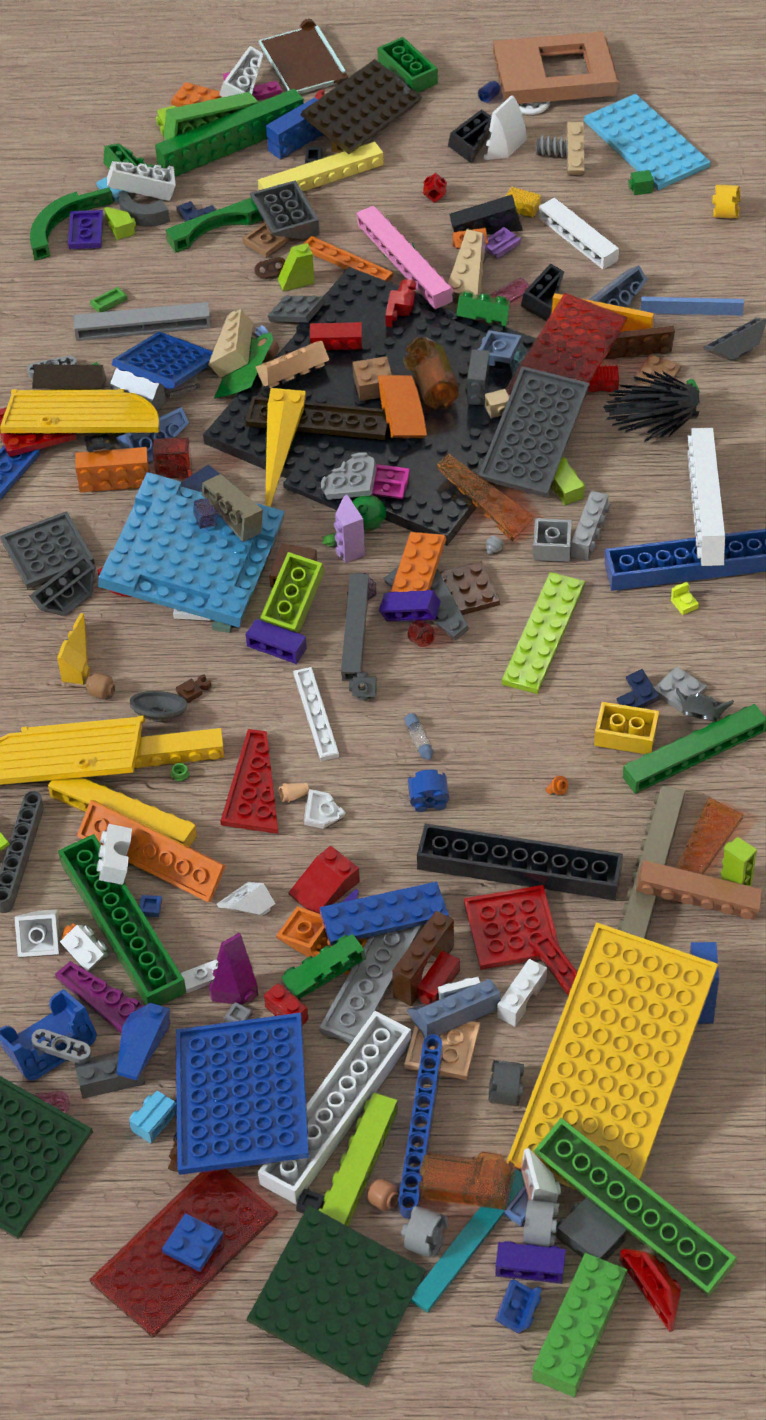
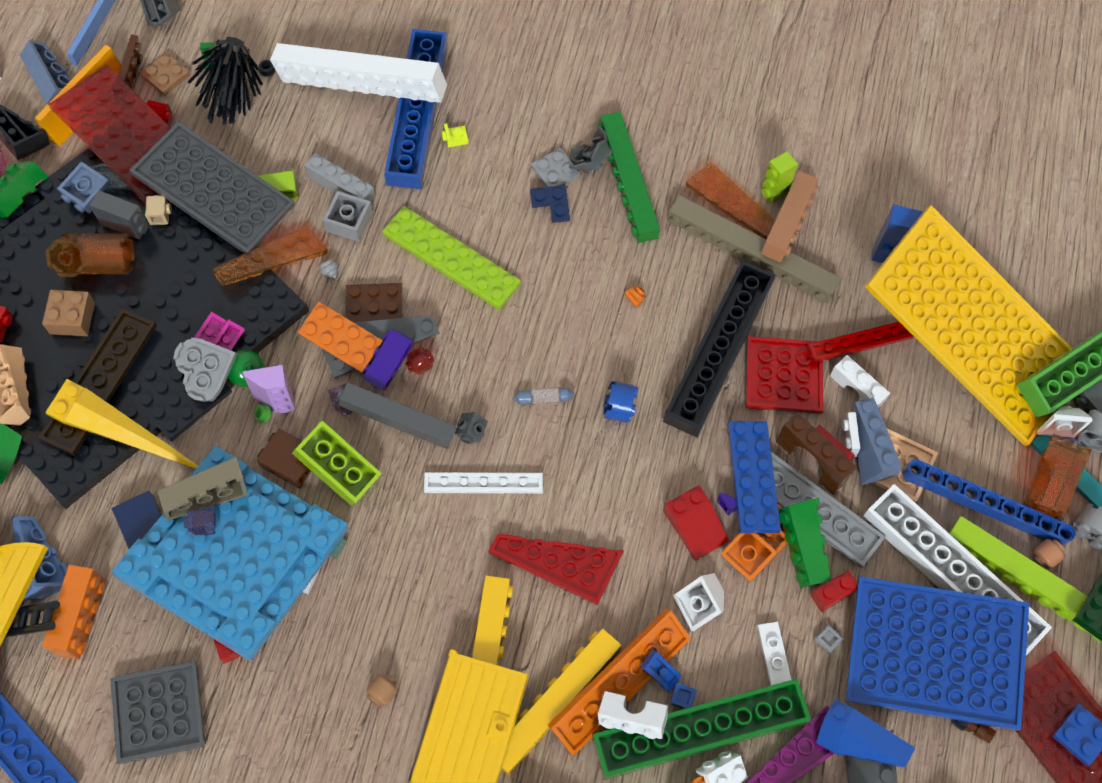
camera: 80 degrees left, 15 degrees up
(66, 588) = (227, 701): dark grey wedge -> none
(74, 654) = (333, 708): yellow wedge -> none
(153, 1116) = (934, 745): medium azure brick -> none
(158, 705) = (431, 633): dark grey dish -> none
(167, 878) = (660, 670): none -> blue plate
(172, 457) = (85, 543): clear red brick -> none
(179, 768) = (525, 631): bright green plate -> none
(191, 690) = (412, 597): reddish brown plate -> none
(234, 975) = (802, 630): magenta wedge -> none
(276, 641) = (381, 497): dark purple brick -> none
(293, 791) = (578, 526): light nougat cone -> none
(309, 1198) = (1050, 617): black plate -> none
(321, 810) = (608, 506): white plate -> none
(402, 406) = (125, 293): orange slope -> none
(505, 1083) = (956, 421): dark grey brick -> none
(626, 728) = (594, 220): yellow brick -> none

